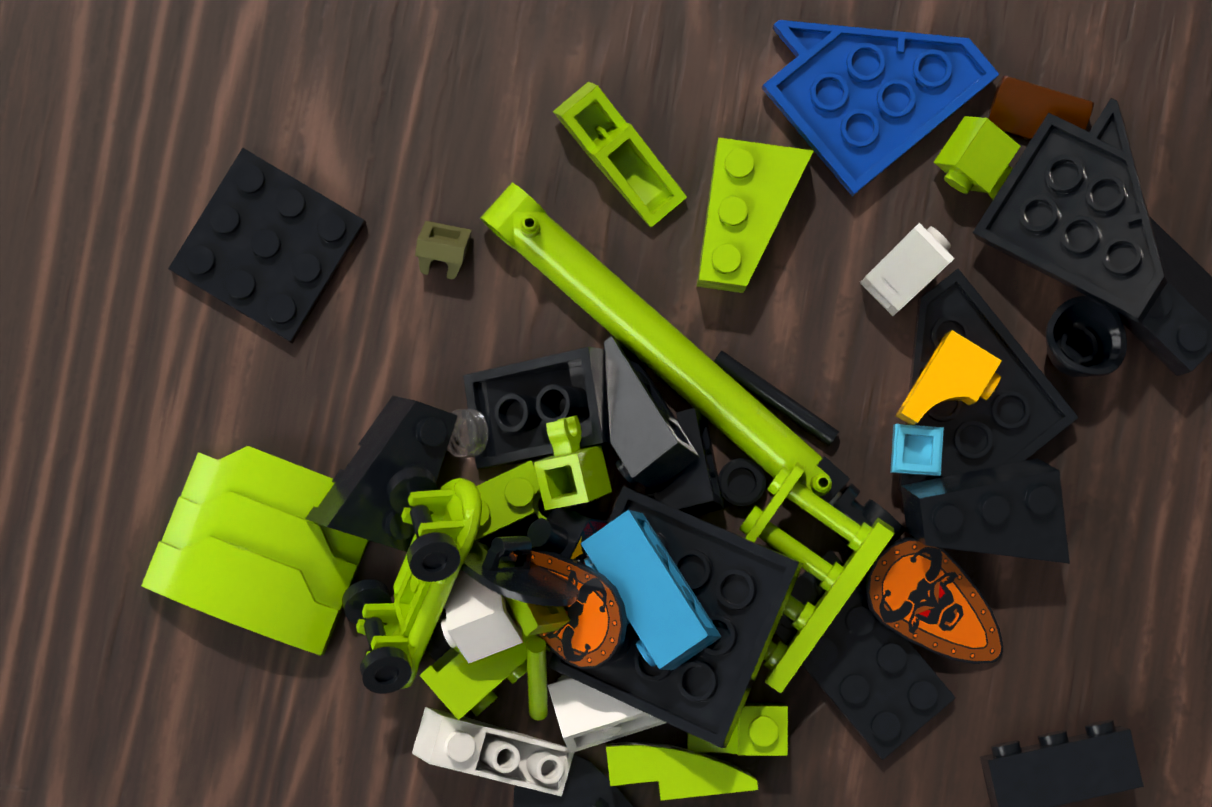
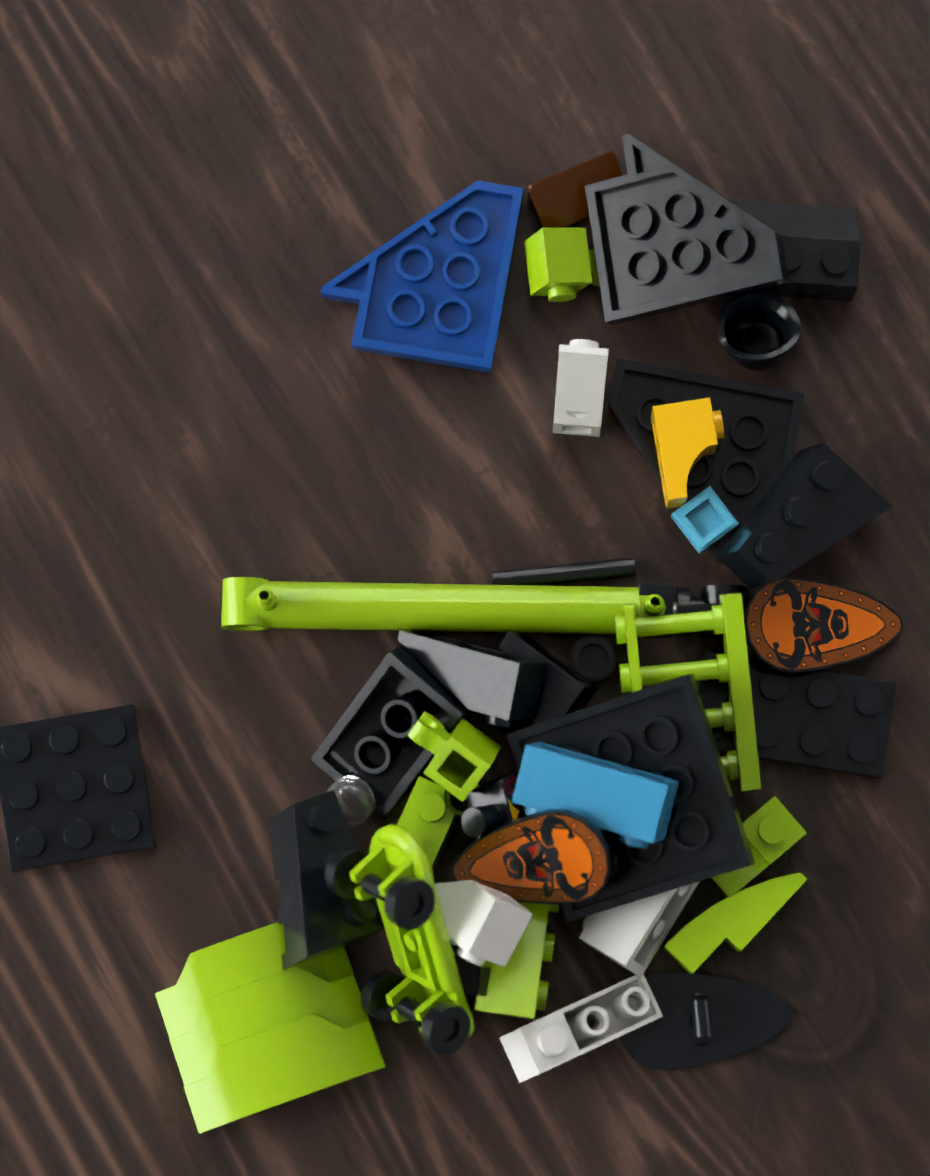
camera: 30 degrees left, 5 degrees down
(442, 244) = (209, 671): olive tile -> none
(516, 574) = (485, 865): black shield -> none
(537, 618) = (519, 878): lime plate -> none
(537, 678) = (566, 938): lime piece -> none
(620, 153) = (286, 488): lime slope -> none
(744, 206) = (417, 449): lime wedge -> none

